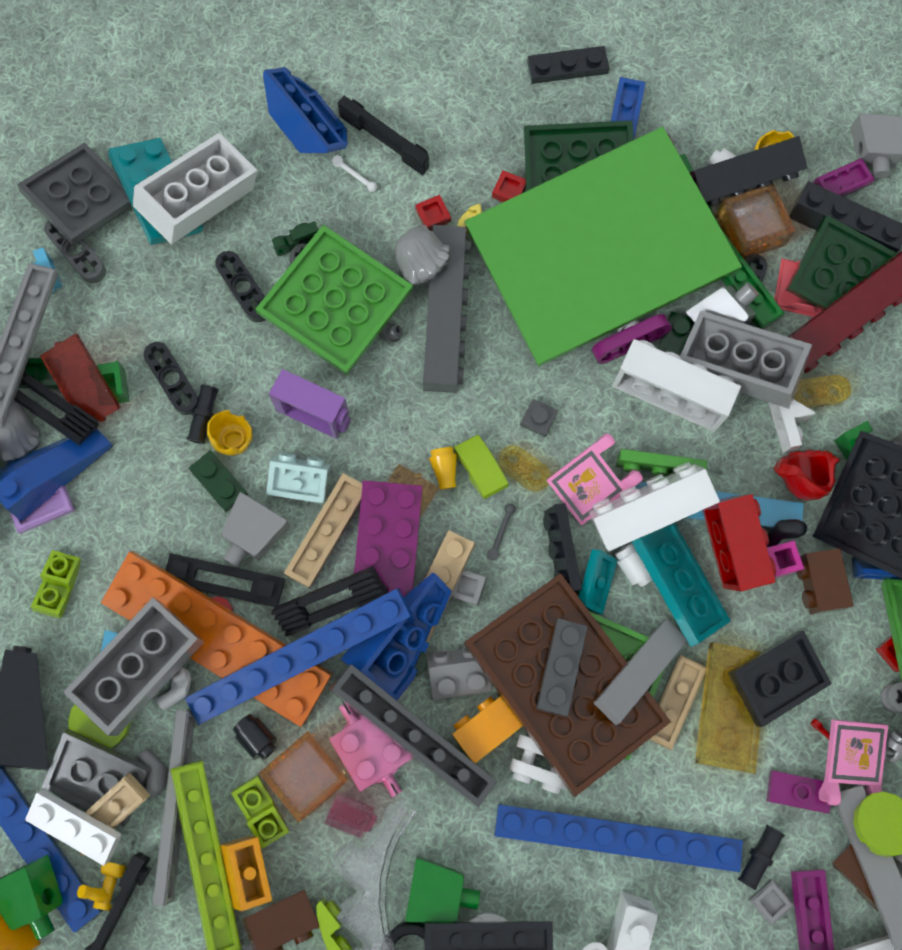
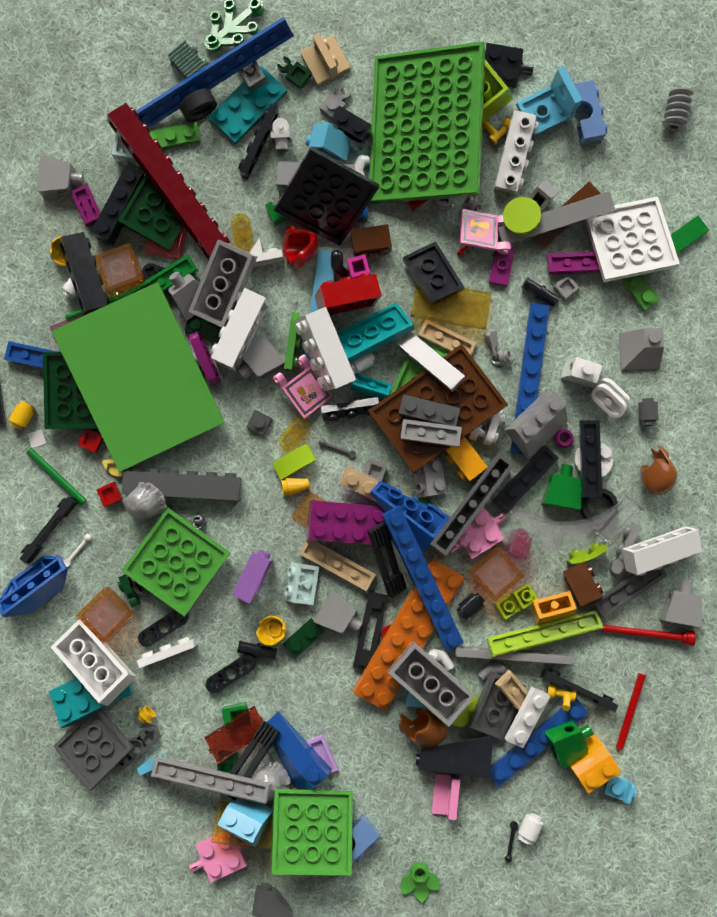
camera: 85 degrees left, 10 degrees up
(57, 584) = (373, 741): lime slope -> none
(62, 660) = (426, 729): none -> dark orange helmet
(119, 263) = (146, 715): none -> yellow plate
(207, 289) = (166, 651): none -> white plate
(262, 207) = (106, 614): none -> piece
(456, 829) = (525, 479): none -> black plate
(458, 146) = (56, 476): none -> green bar
(510, 122) = (36, 438): none -> white sticker
(526, 669) = (431, 433): none -> light grey plate
(529, 903) = (569, 436): none -> magenta plate
(542, 100) = (21, 415): none -> yellow brick
(545, 850) = (538, 423): none -> light grey slope
(633, 417) = (261, 359): none -> light grey torso
(654, 793) = (503, 355): none -> light grey piece

